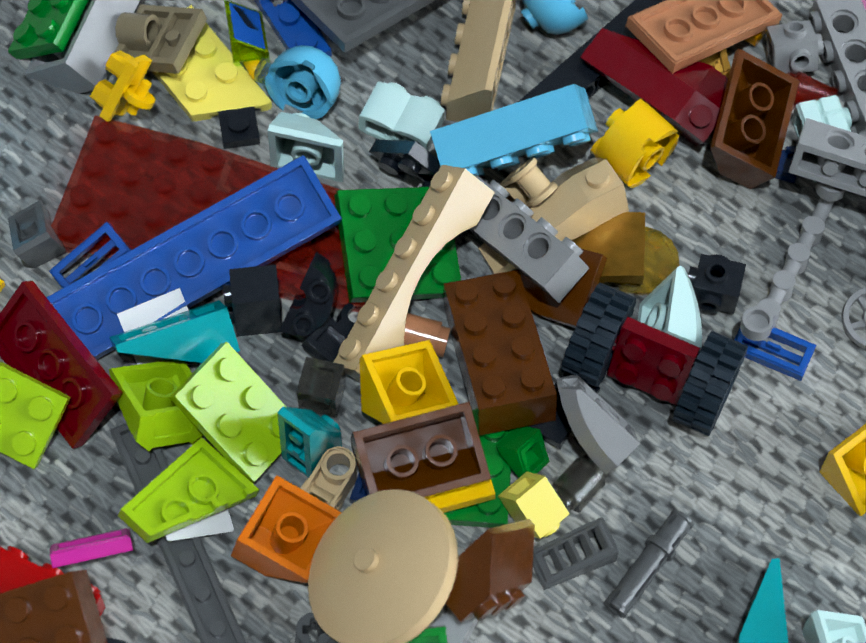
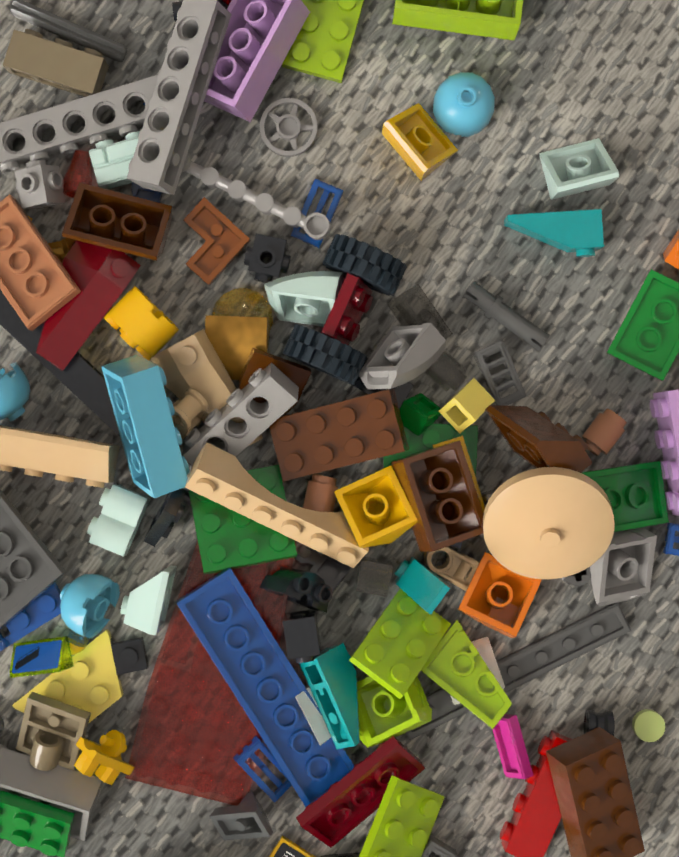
camera: 95 degrees left, 25 degrees up
(648, 463) = (415, 309): none -> clear smoke slope
(731, 237) = (222, 240): none -> dark orange plate

